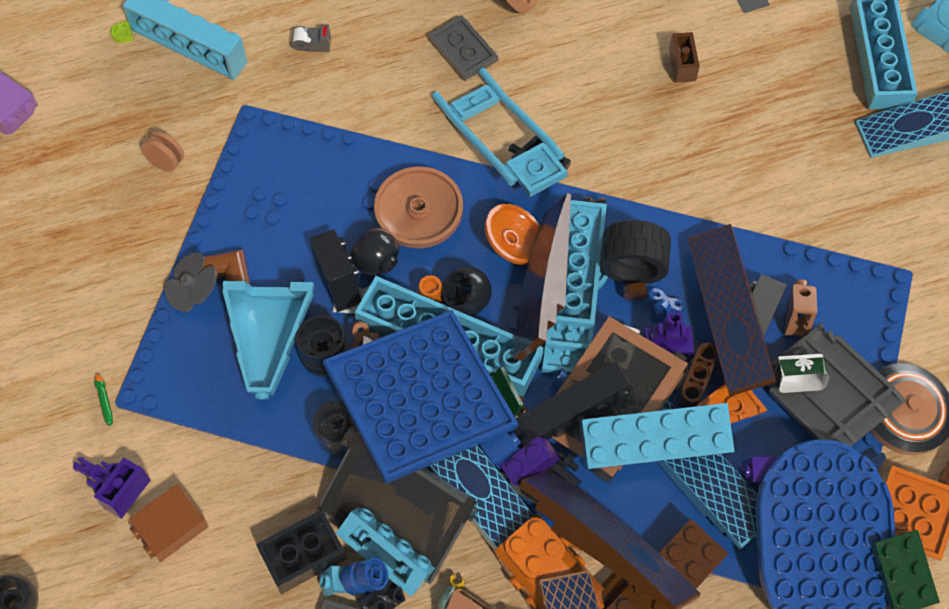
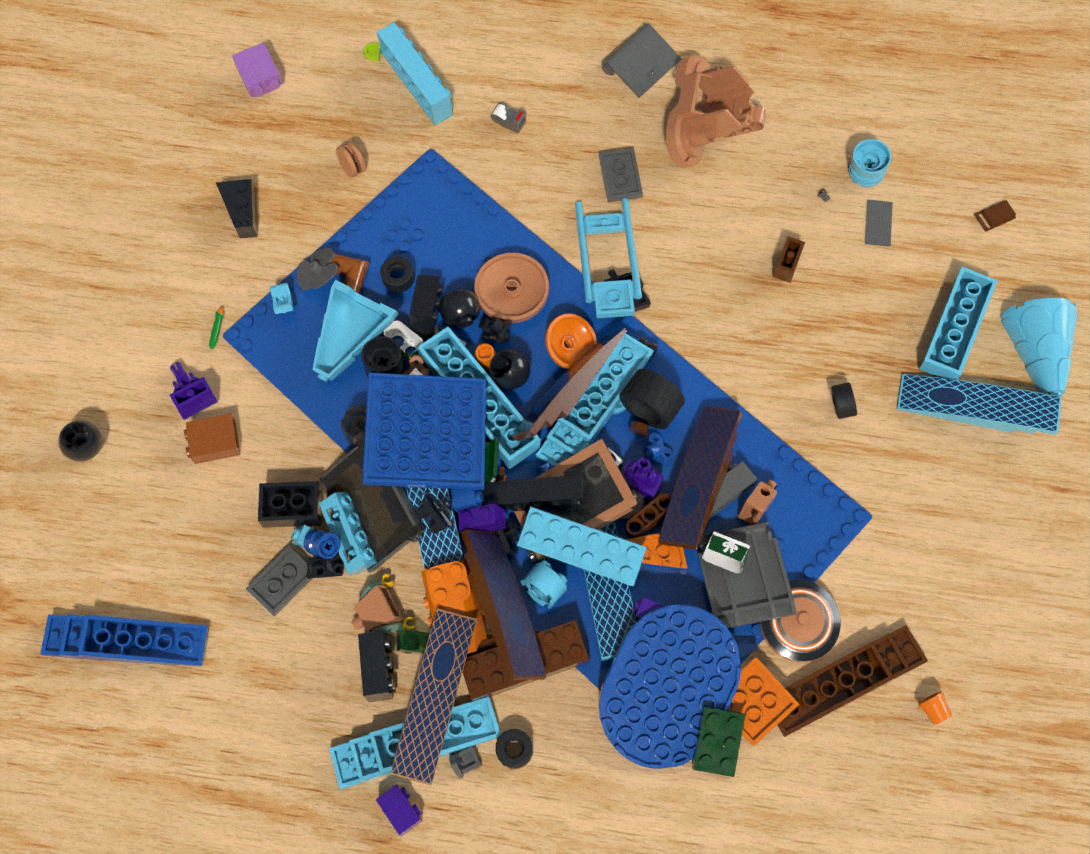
camera: 30 degrees right, 5 degrees up
(60, 253) = (241, 205): none -> black wedge
(166, 331) = (281, 298): none -> medium azure bracket
(287, 260) = (394, 264): none -> black tyre
(331, 306) = (399, 329): none -> white piece
(425, 258) = (495, 329): none -> black hips
(491, 483) = (438, 511): none -> black hips
(634, 498) = (544, 584): none -> medium azure brick
(820, 170) = (844, 400): none -> black tyre

